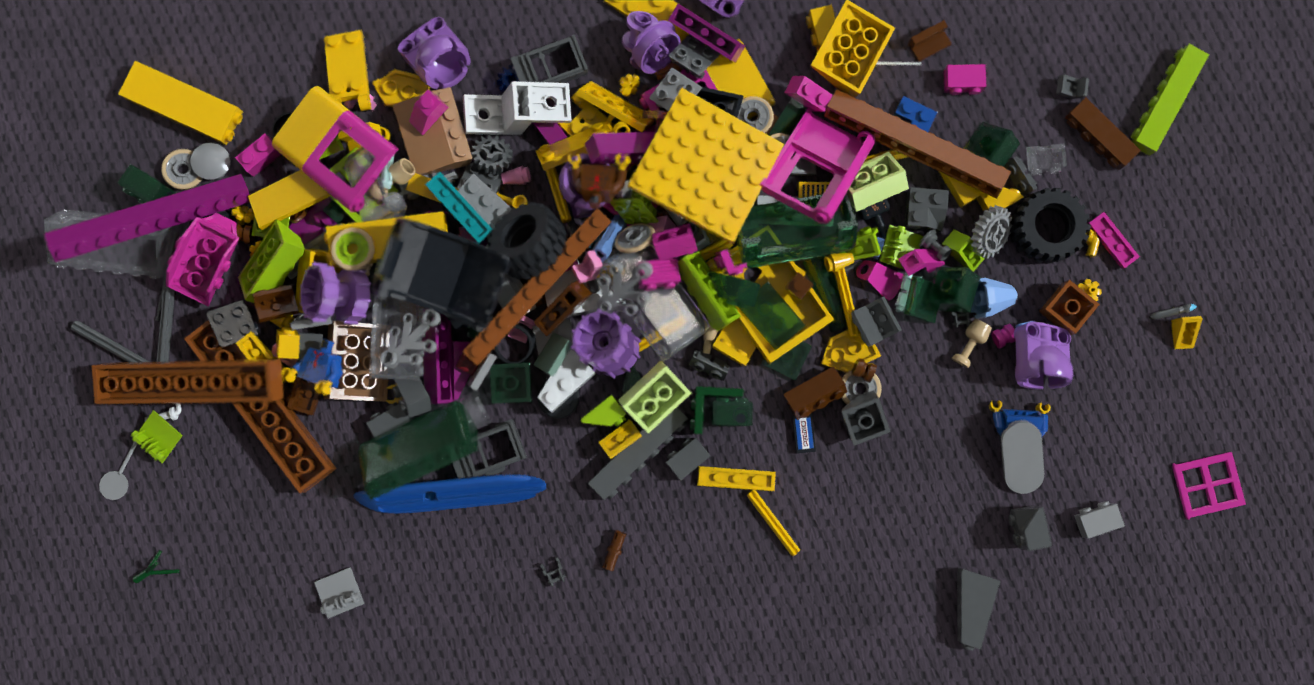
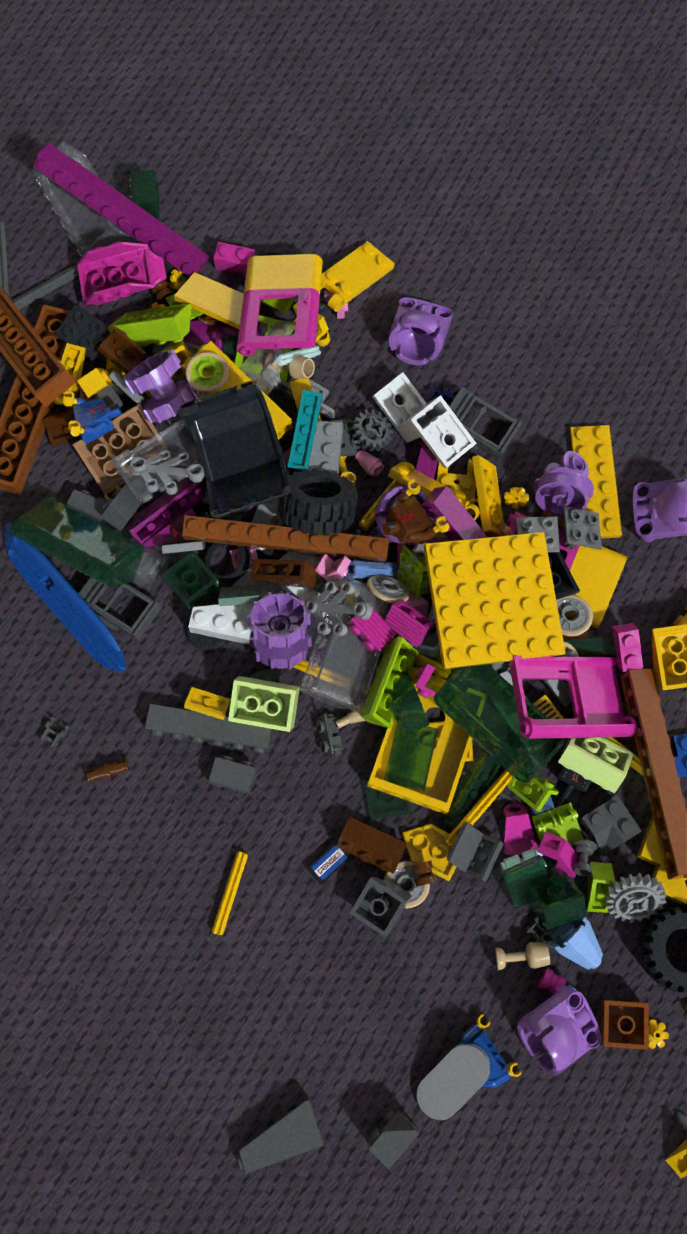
camera: 55 degrees right, 10 degrees down
(170, 170) = (185, 204): light grey wheel -> none
(181, 103) = (233, 177): yellow brick -> none
(210, 161) = (202, 229): light grey dish -> none
(399, 87) = (370, 329): yellow tile -> none
(427, 111) = (366, 352): dark pink slope -> none
(442, 145) = (353, 372): medium nougat slope -> none
(606, 414) = (220, 674): lime slope -> none
(697, 404) = (287, 747): dark green bracket -> none
(706, 33) = (609, 524): magenta brick -> none
(732, 412) = (299, 782): clear green brick -> none
(735, 343) = (364, 743): yellow bracket -> none
(736, 478) = (246, 832): yellow tile -> none
(799, 286) = (453, 758): reddish brown brick -> none
(837, 261) = (501, 778): yellow cone -> none
(1099, 520) = (449, 1203): light grey brick -> none

